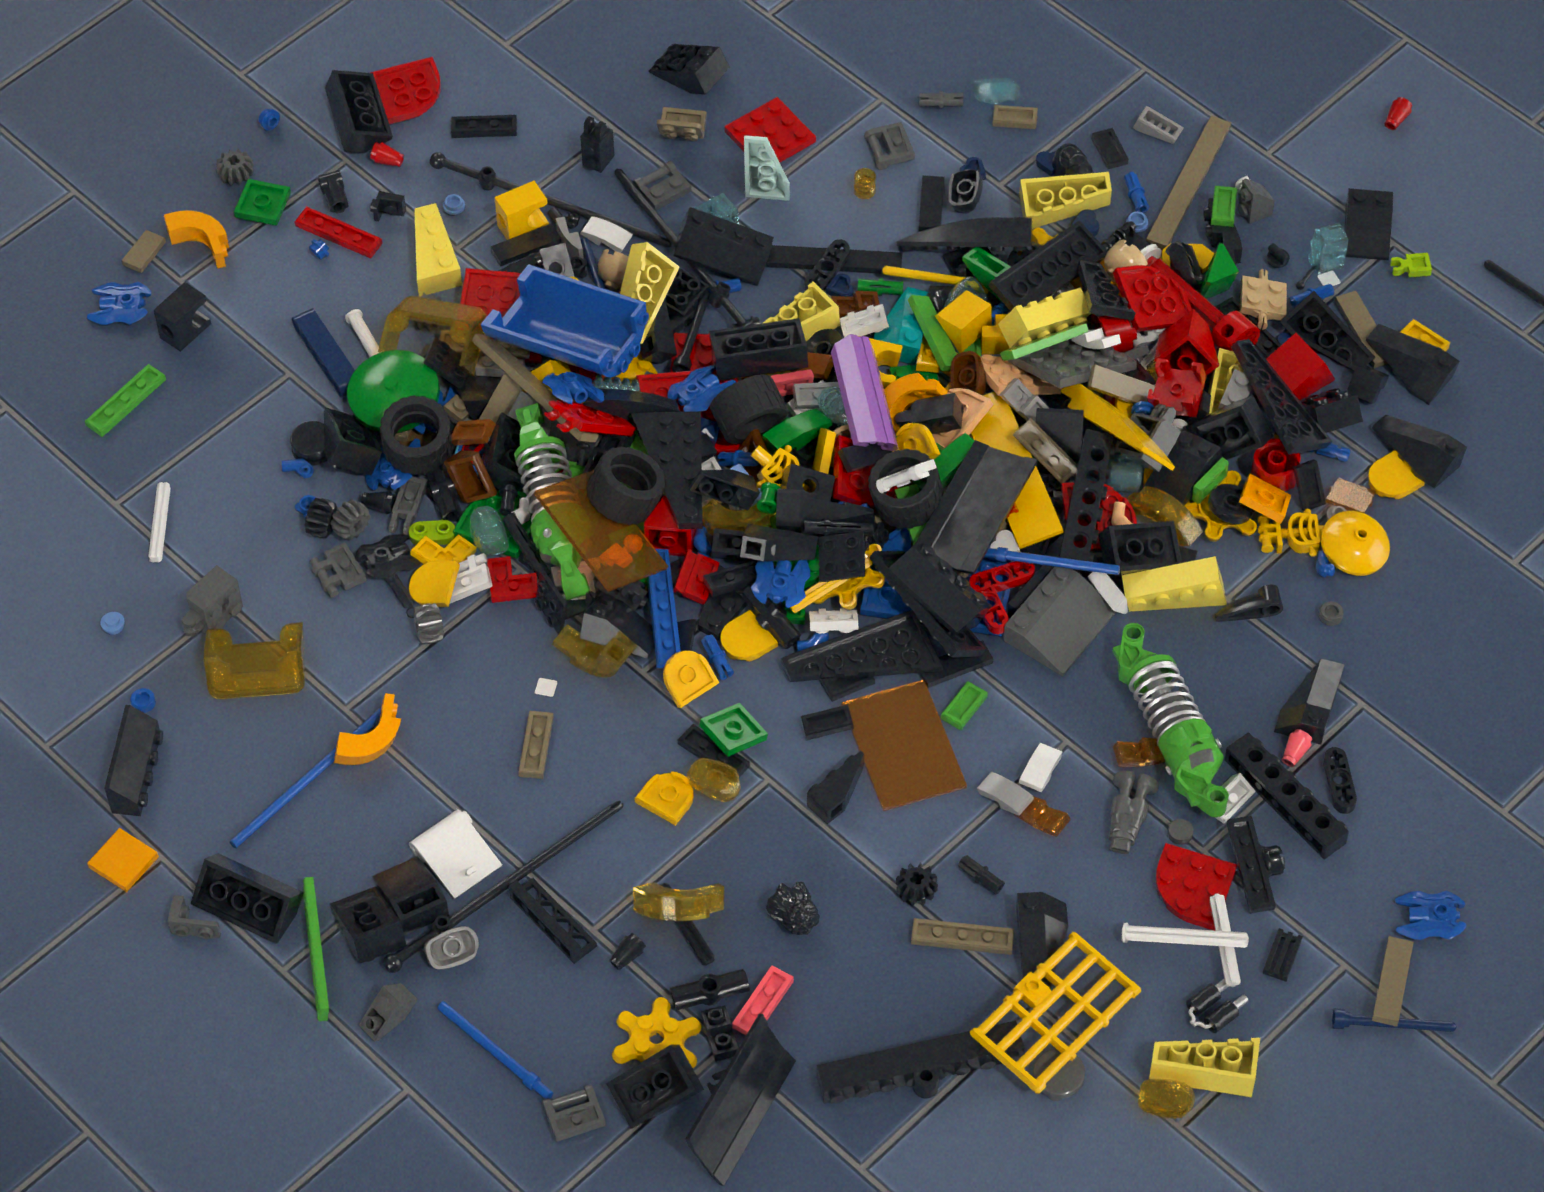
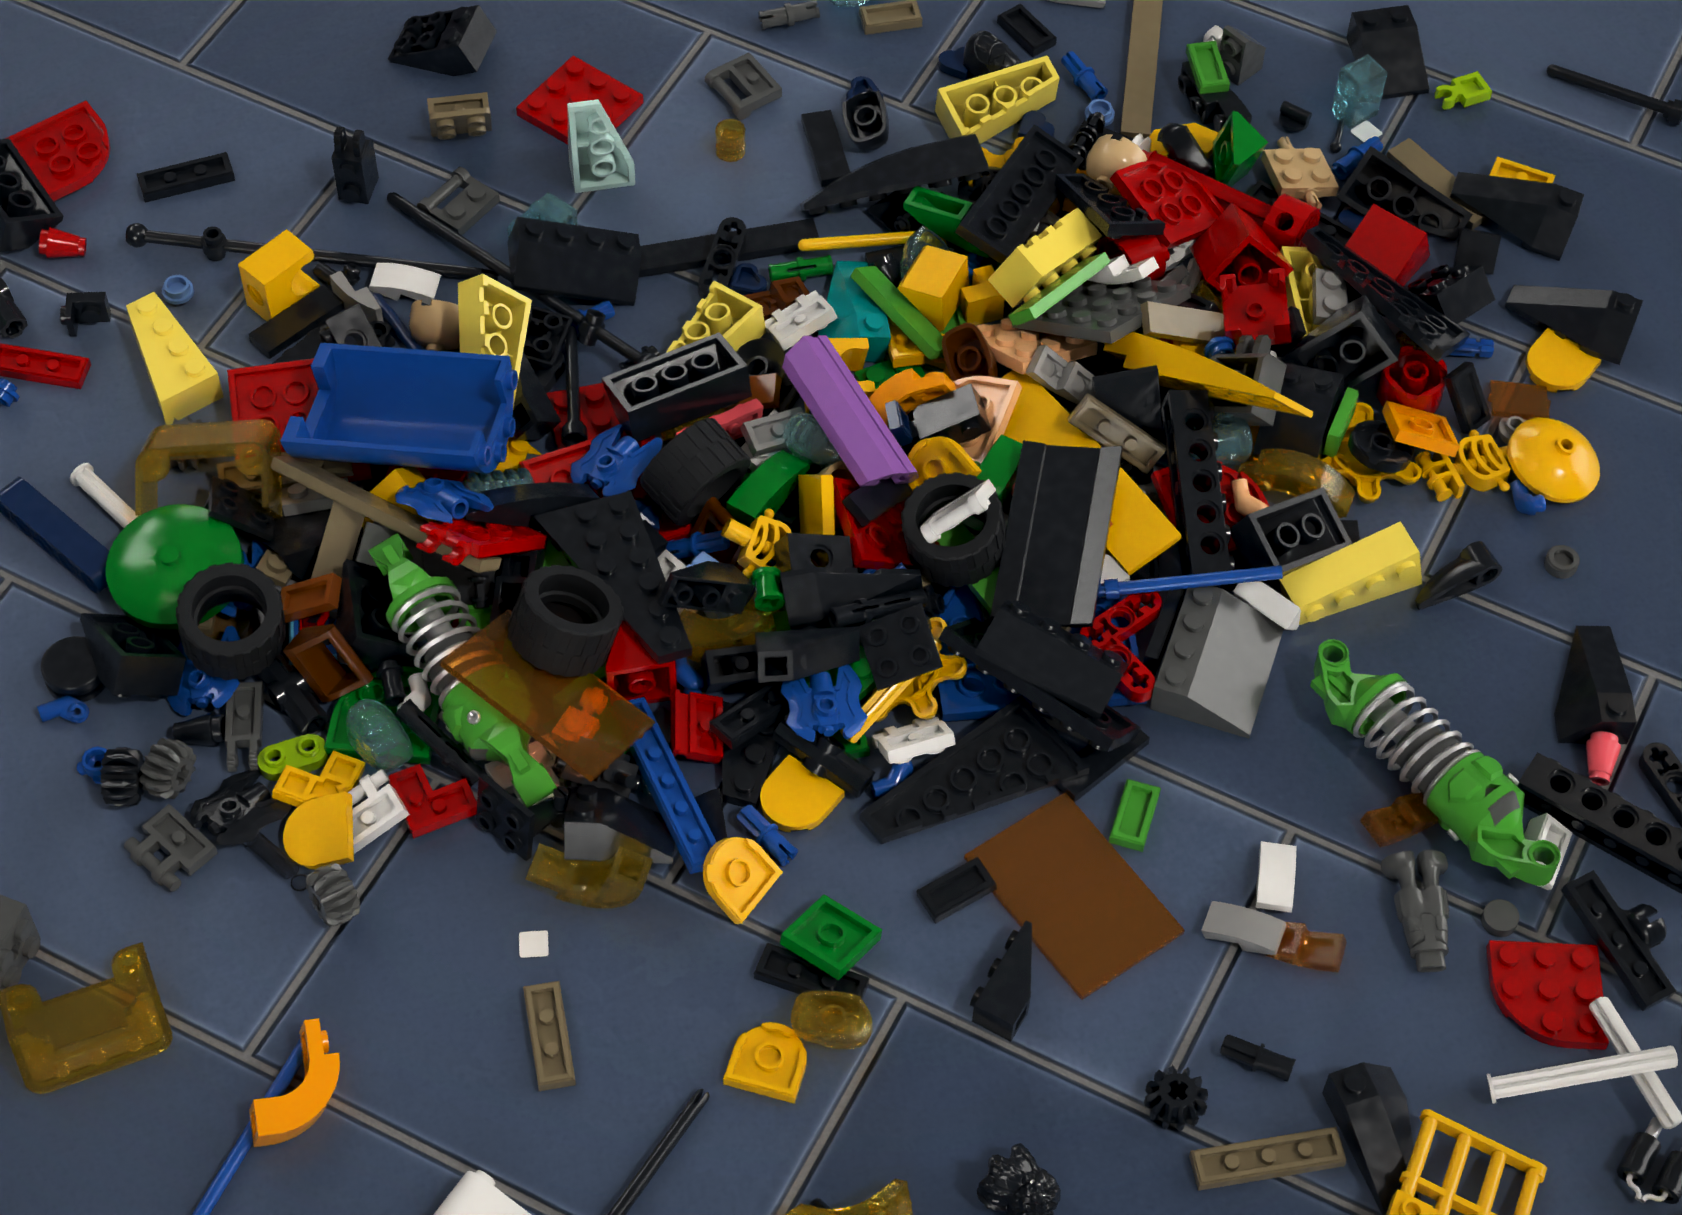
camera: 20 degrees left, 0 degrees up
(842, 687) = (956, 833): black tile -> none
(898, 408) = (898, 423): none -> dark blue tile

